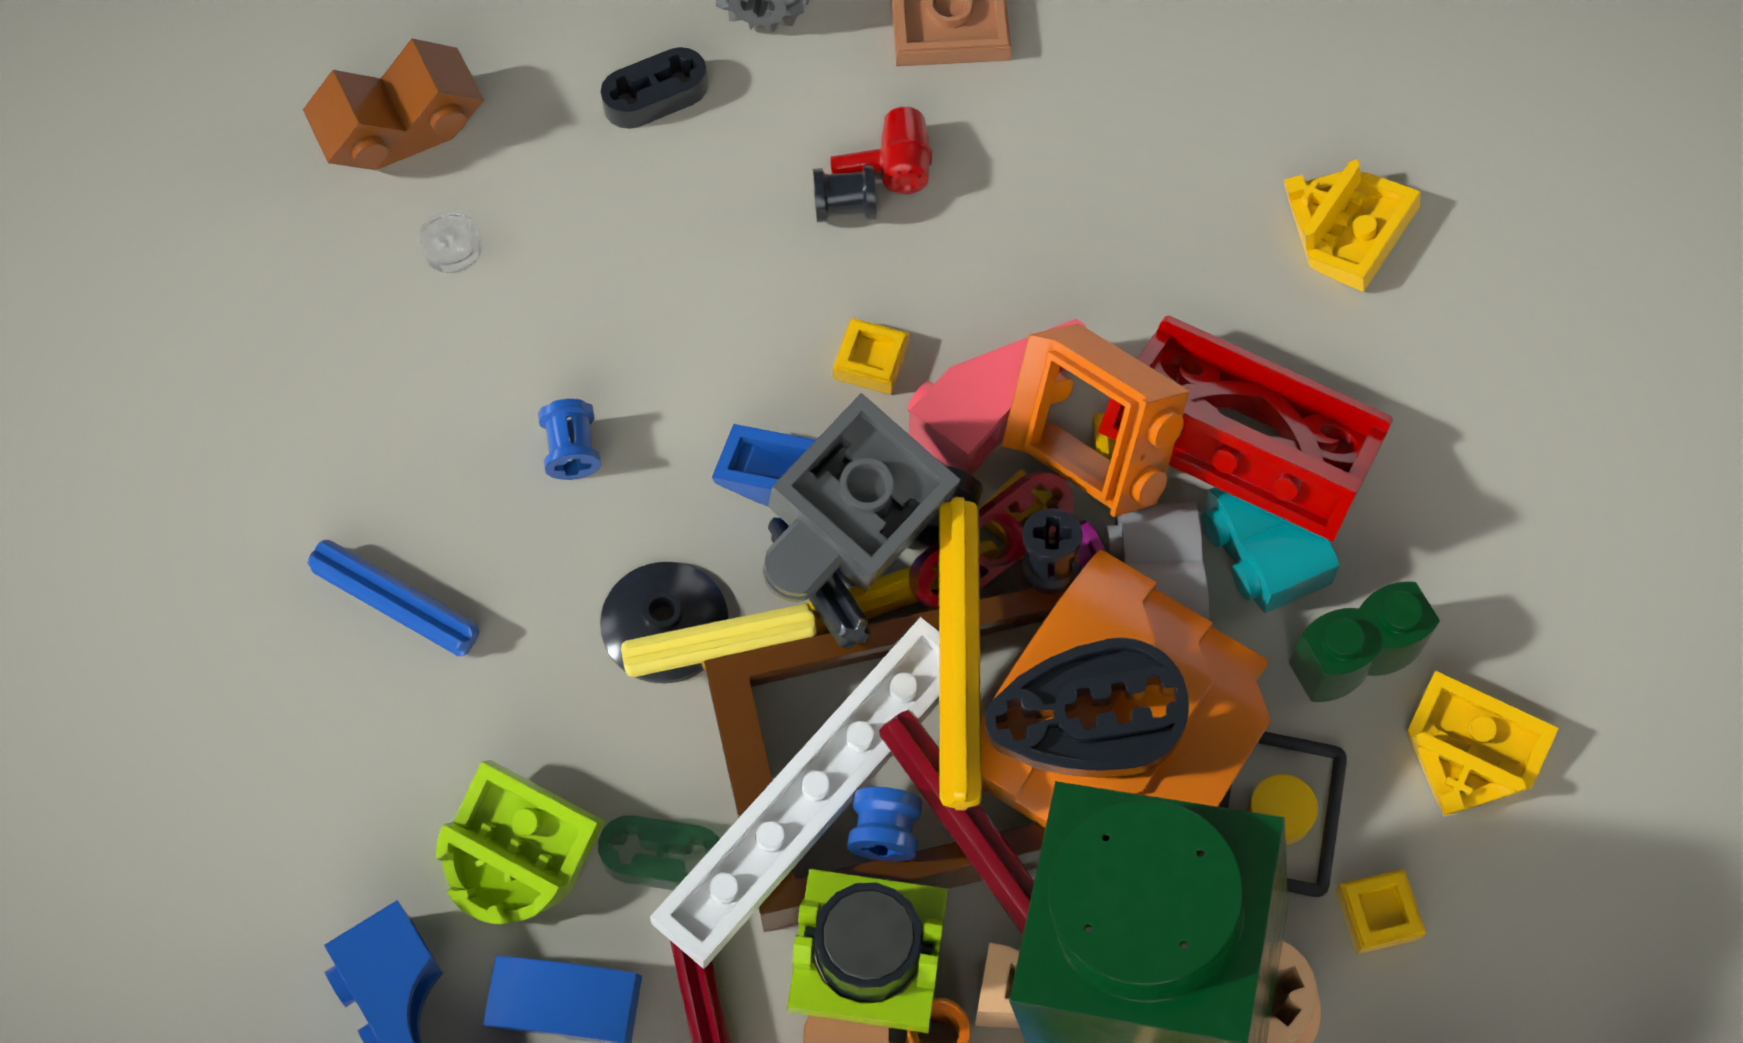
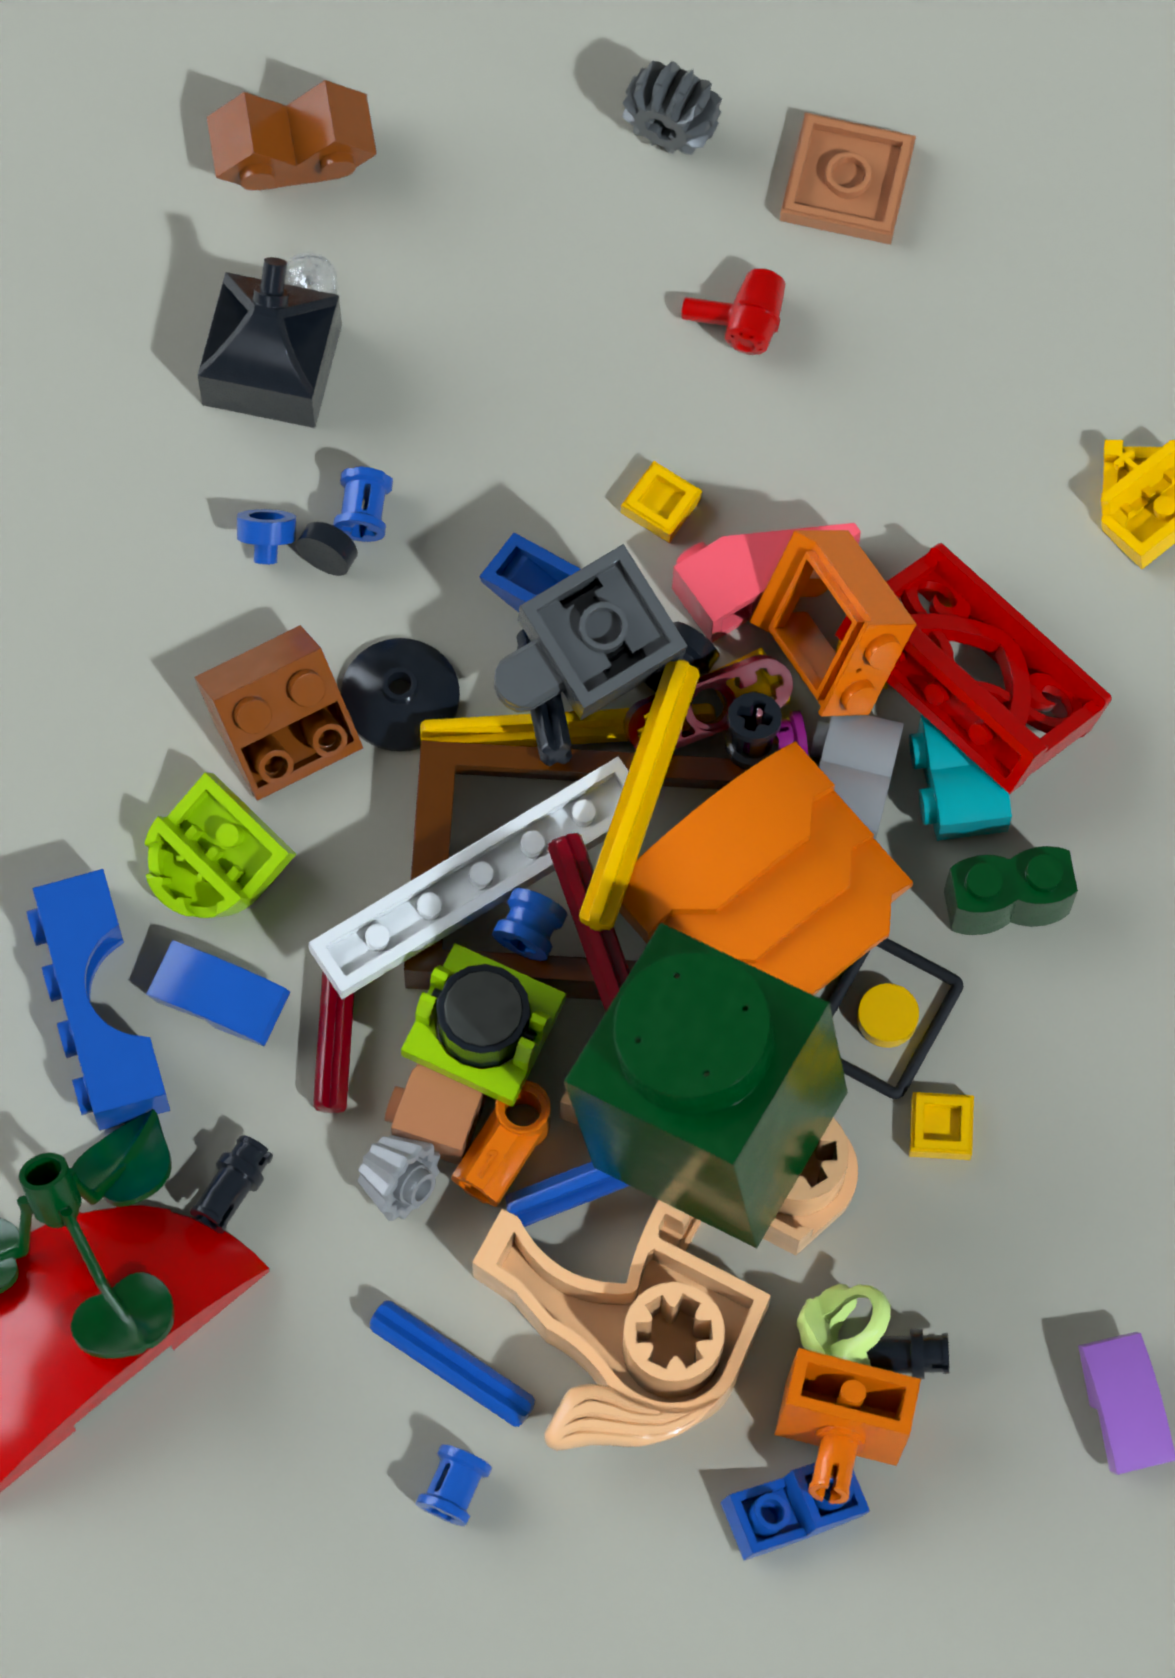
camera: 15 degrees right, 5 degrees up
(393, 597) = (166, 603): blue axle -> none
(428, 309) = (270, 347): none -> black piece
(476, 494) = (266, 531): none -> blue tile
(543, 675) = (279, 712): none -> dark orange slope
(545, 493) = (327, 548): none -> black tile
(654, 87) = (541, 181): black beam -> none
(656, 836) = (334, 878): clear green beam -> none
(717, 640) = (438, 725): light yellow axle -> none
(844, 193) = (685, 338): black bush -> none
(1095, 672) = (735, 912): black piece -> none
(1475, 745) = (1079, 1010): yellow slope -> none

